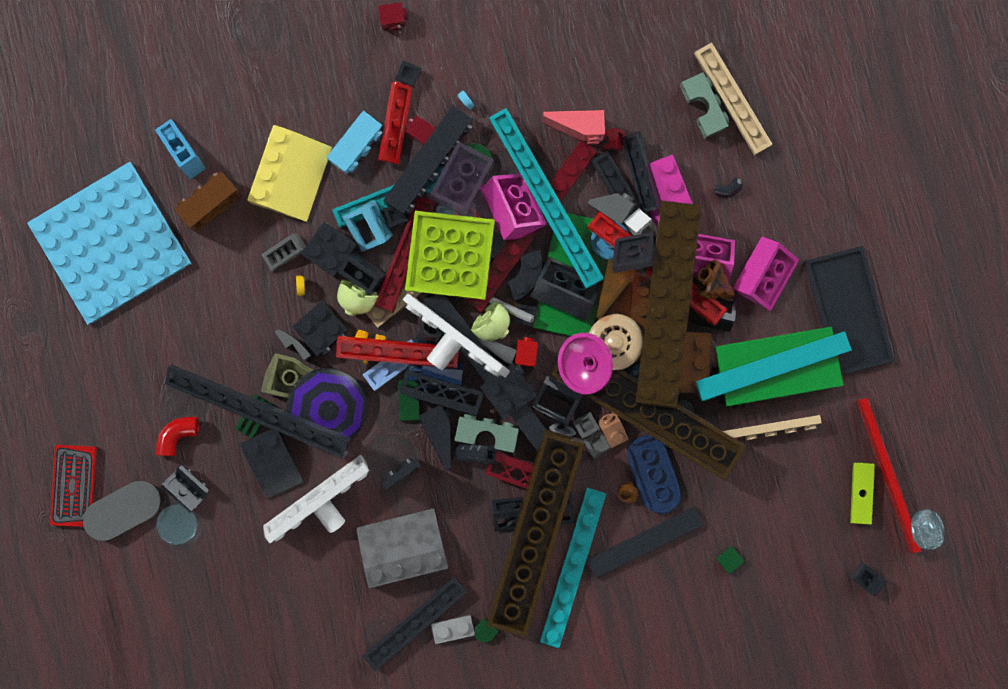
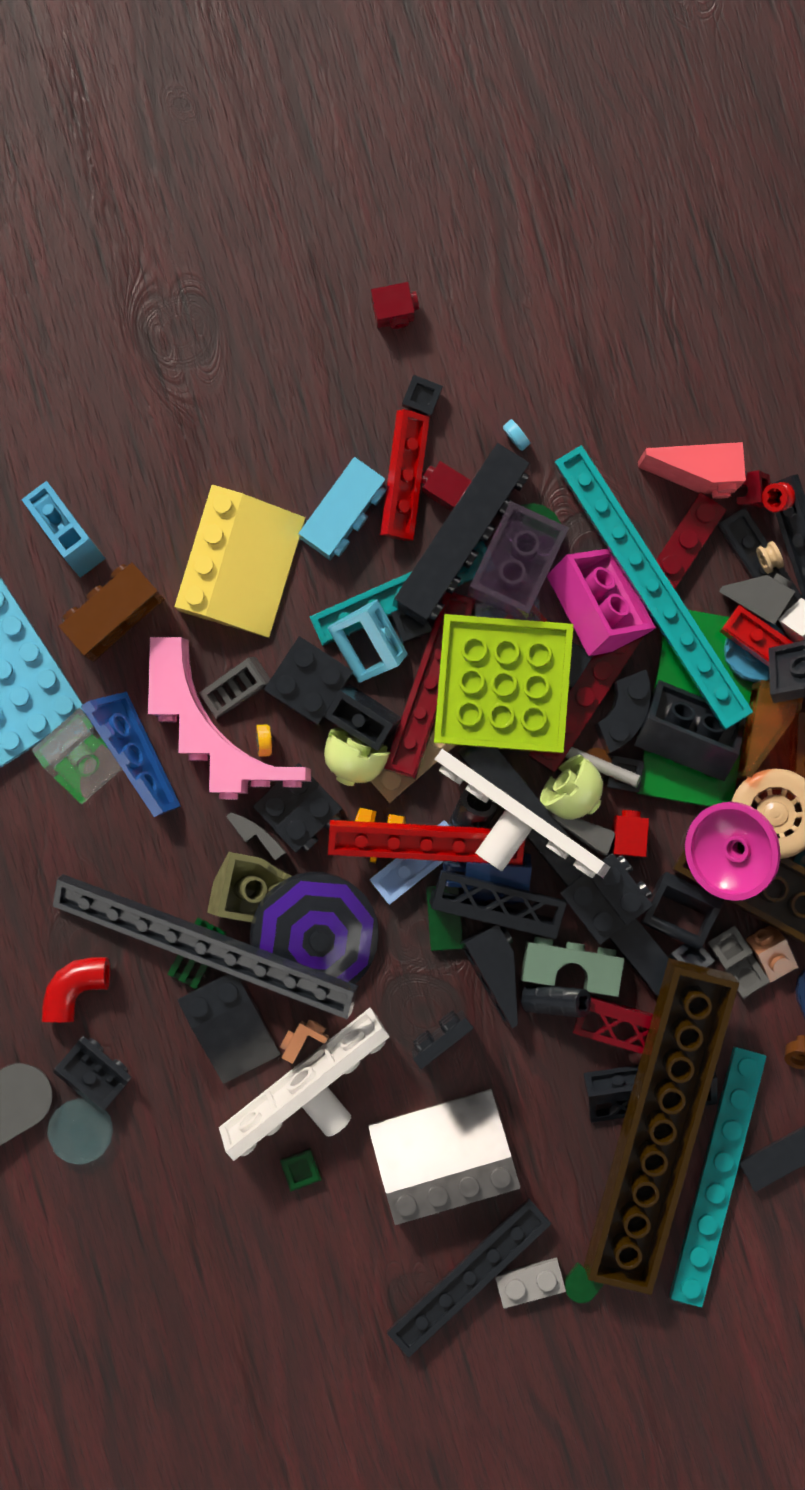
camera: 10 degrees left, 0 degrees up
(185, 291) = (77, 757): none -> clear slope
(215, 283) = (129, 744): none -> blue wing
(245, 255) = (174, 696): none -> bright pink arch
(312, 473) = (294, 1041): none -> nougat bracket
(313, 553) = (300, 1169): none -> dark green tile
(621, 182) = (770, 557): none -> tan bush
(631, 147) = (770, 494): none -> red bush

